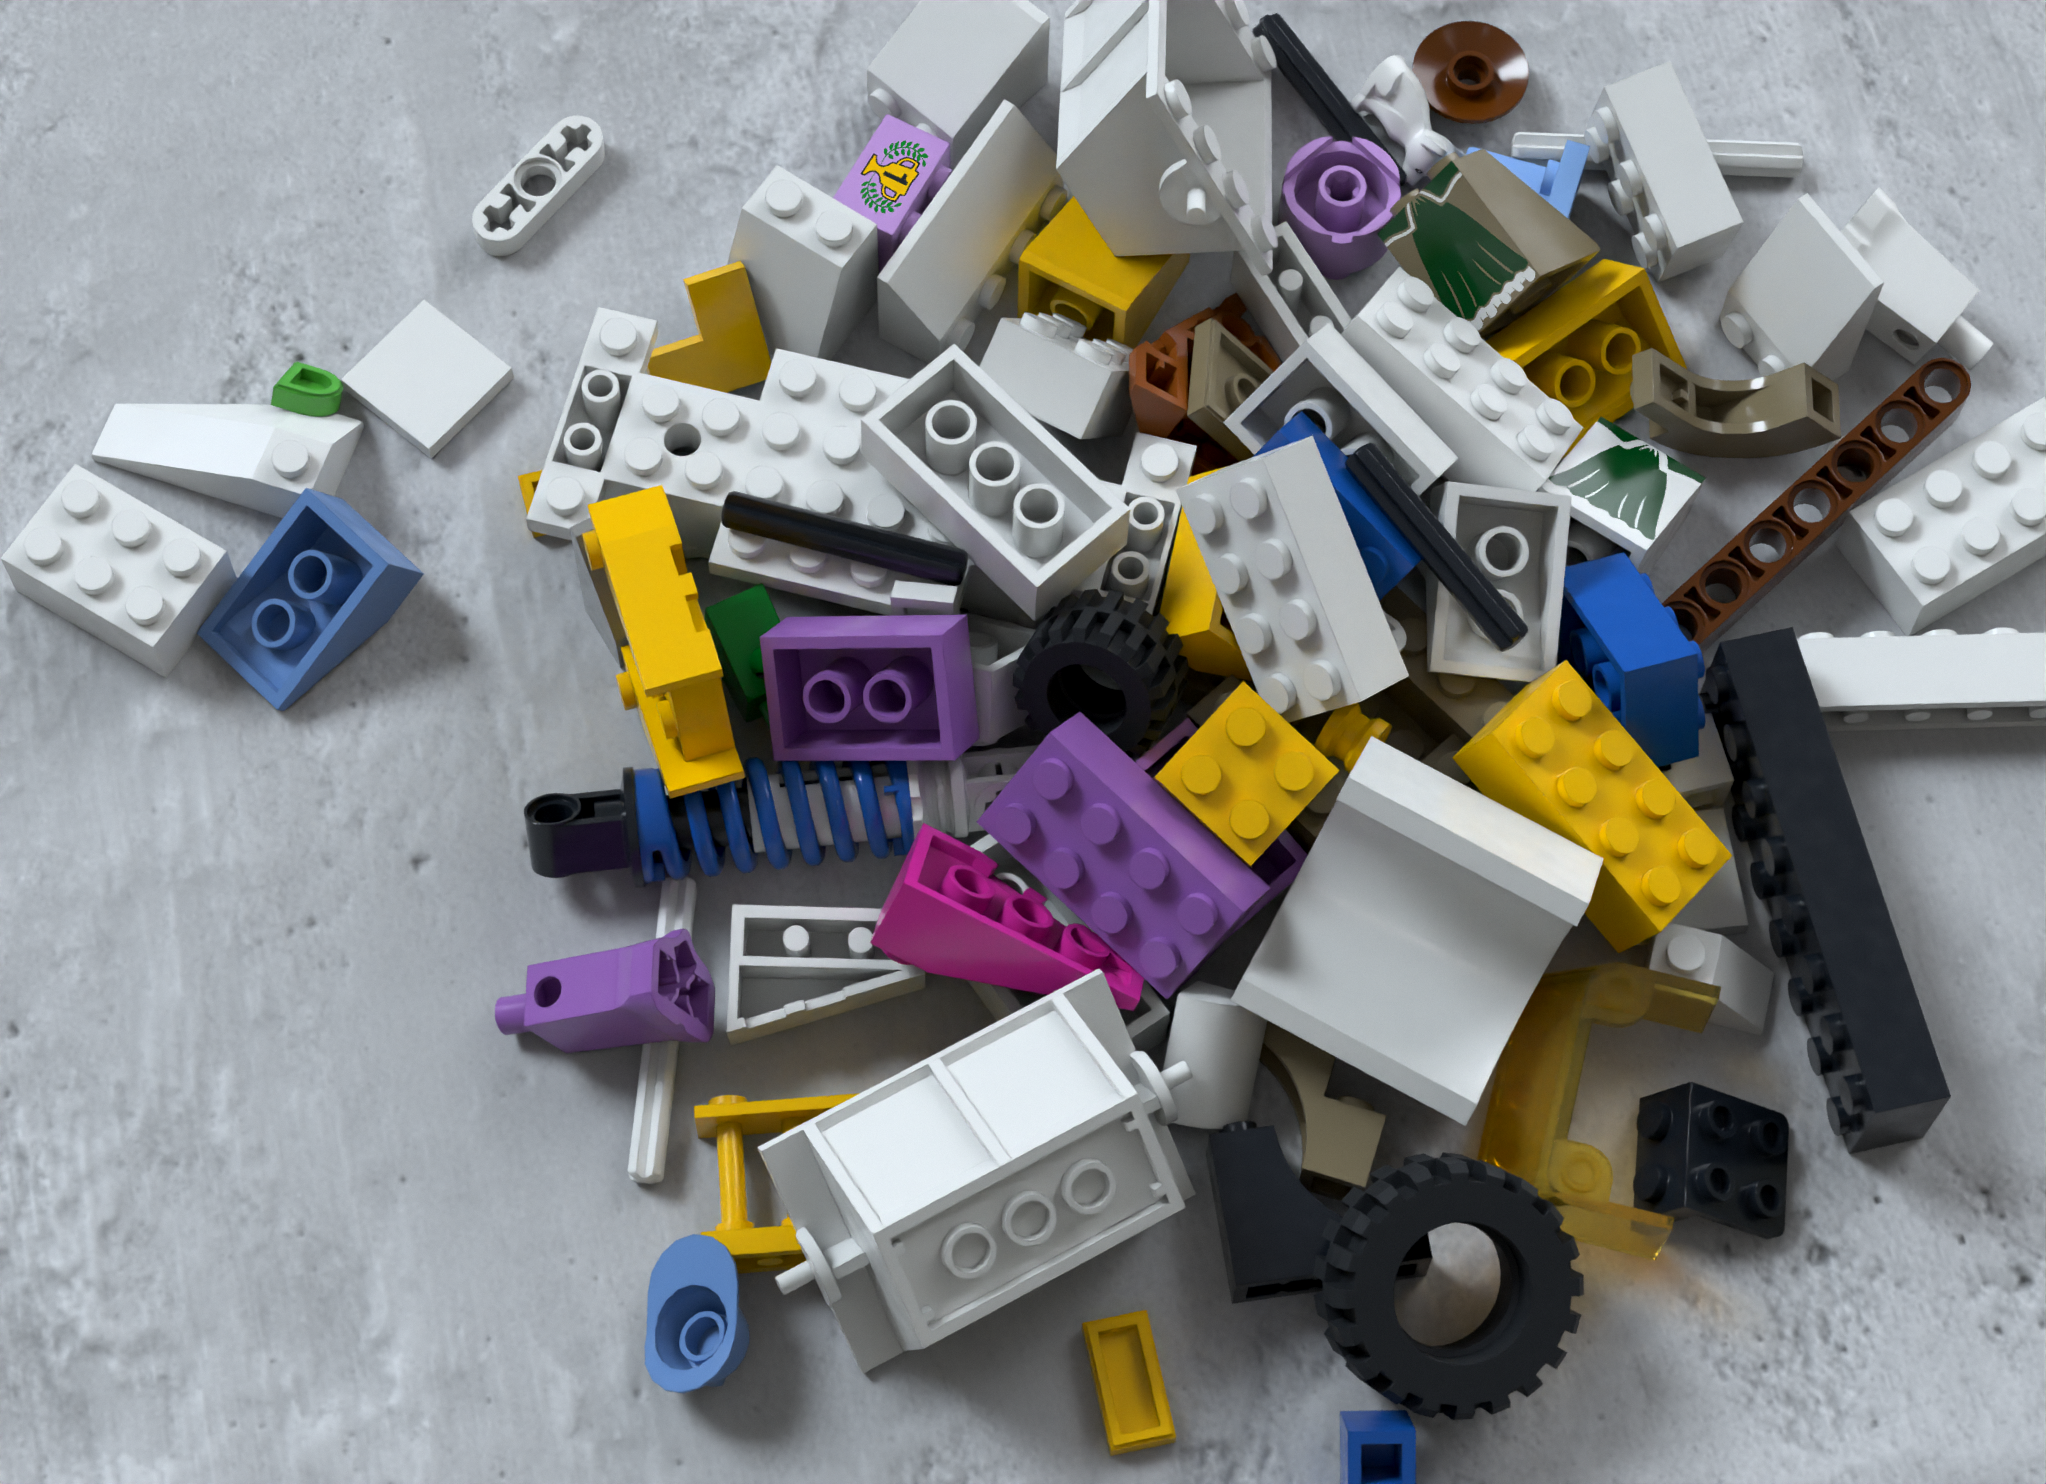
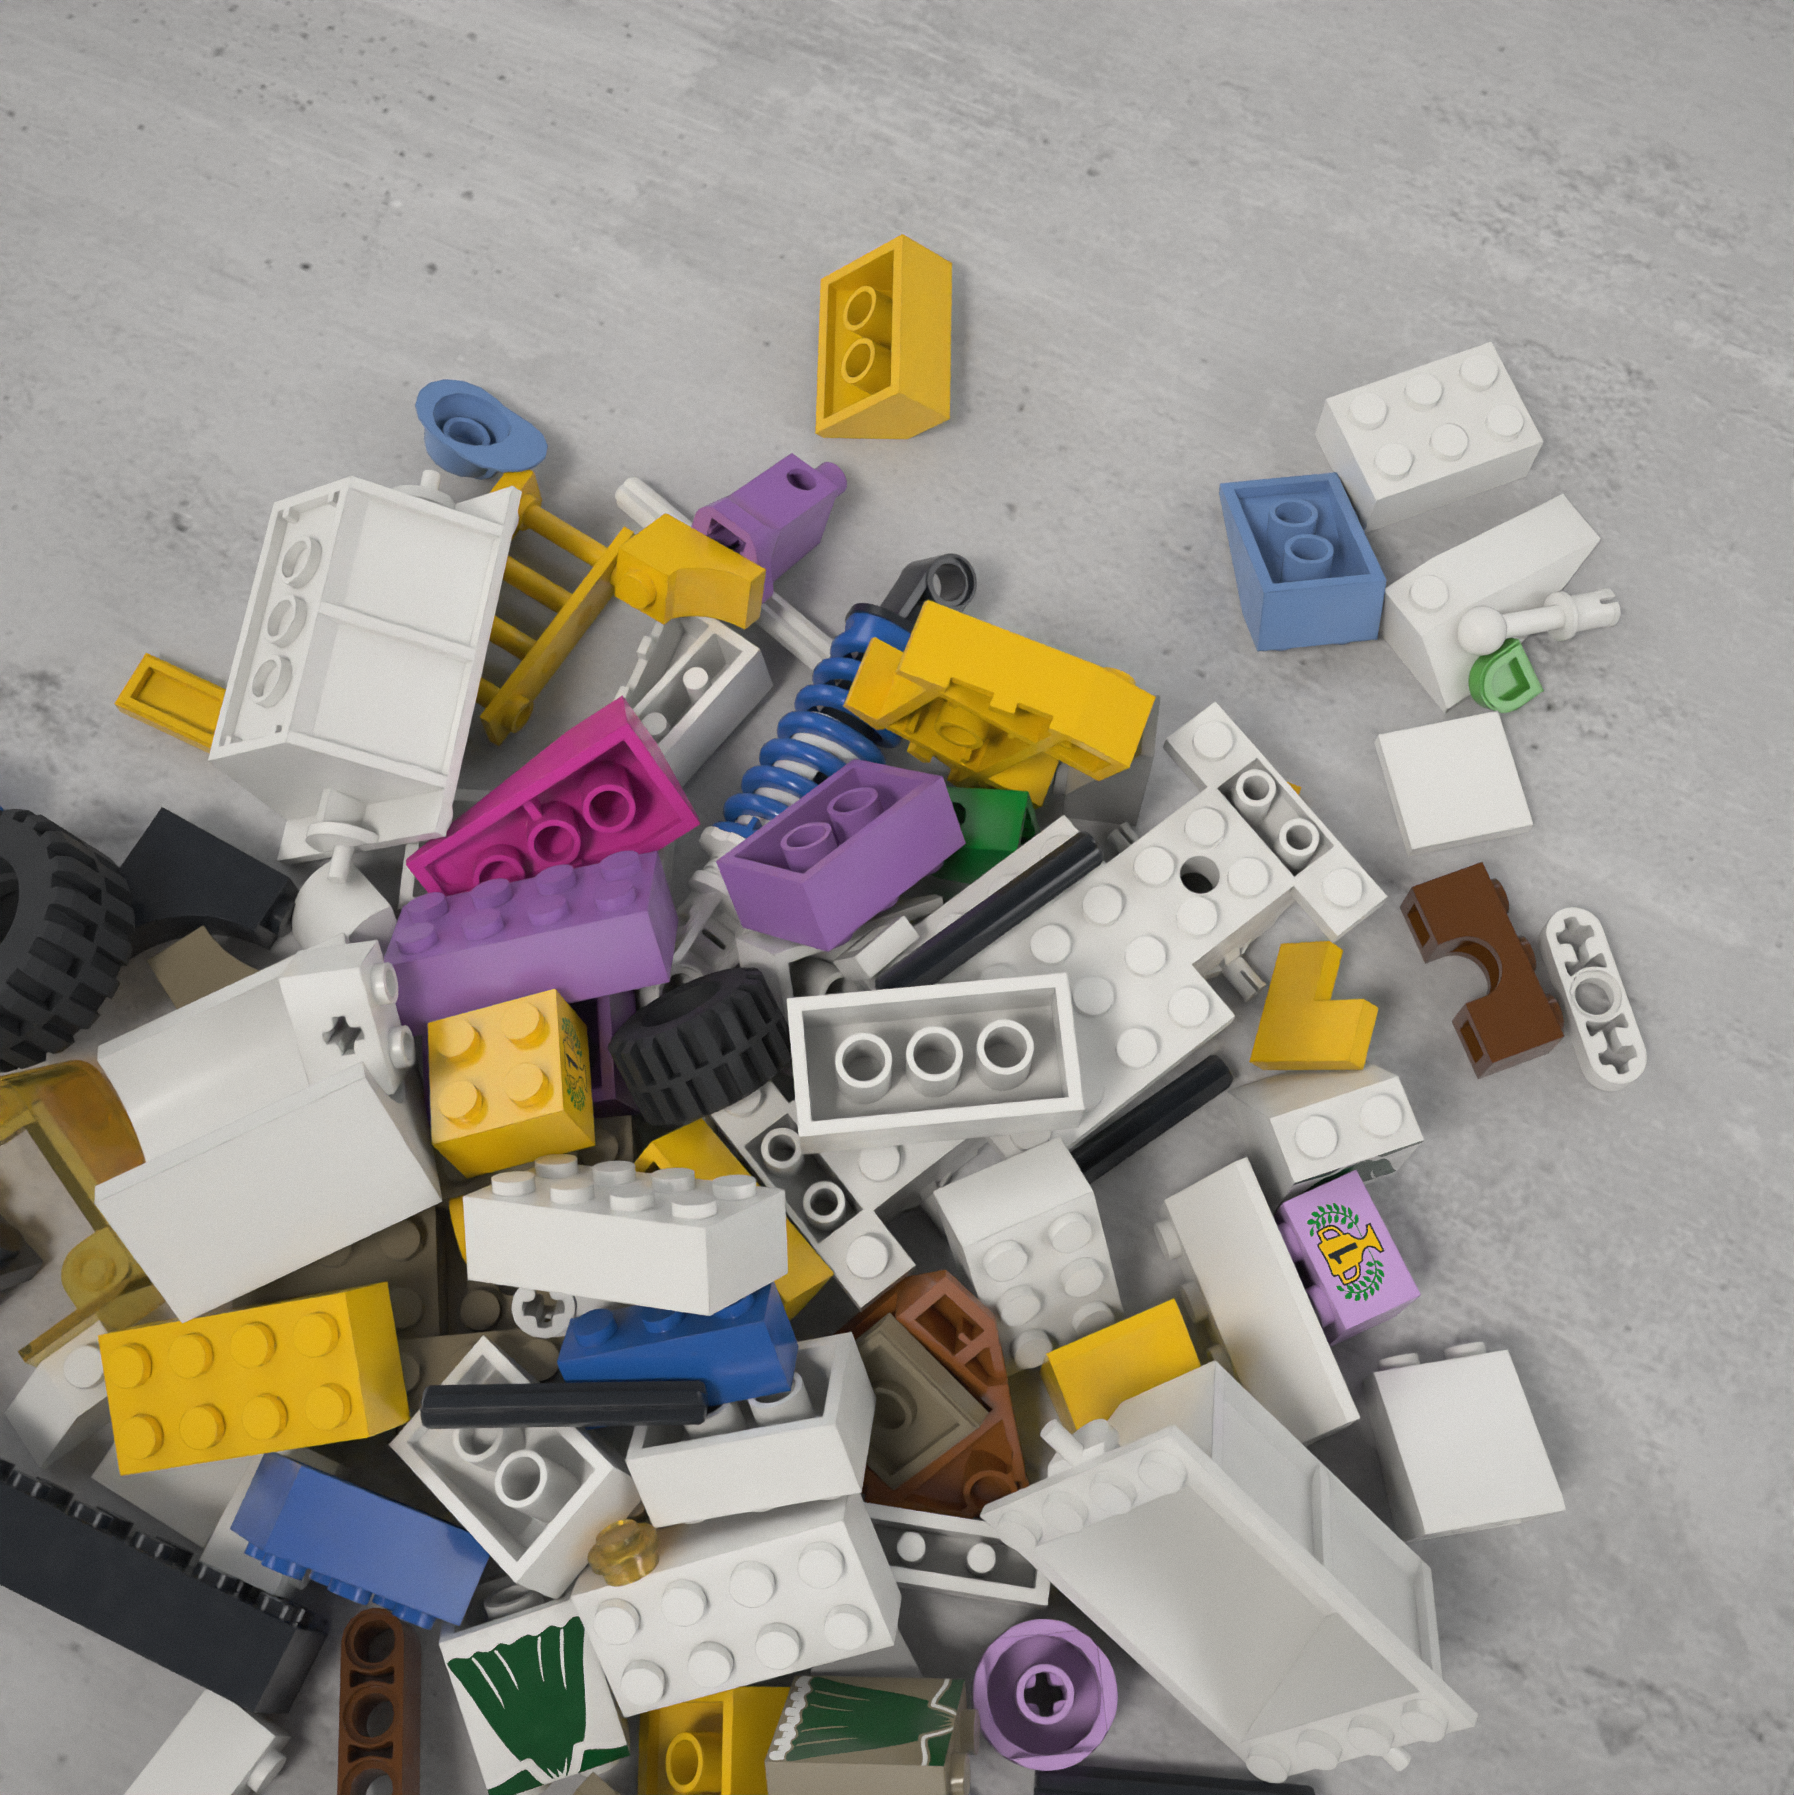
camera: 130 degrees right, 5 degrees up
(222, 380) = (1485, 629): none -> white pin
(344, 1059) = (885, 344): none -> yellow slope
(599, 221) = (1469, 919): none -> reddish brown arch
(711, 1008) = (683, 573): none -> yellow arch
(1300, 902) = (347, 1013): none -> white brick
(1489, 461) = (625, 1552): none -> clear yellow plate

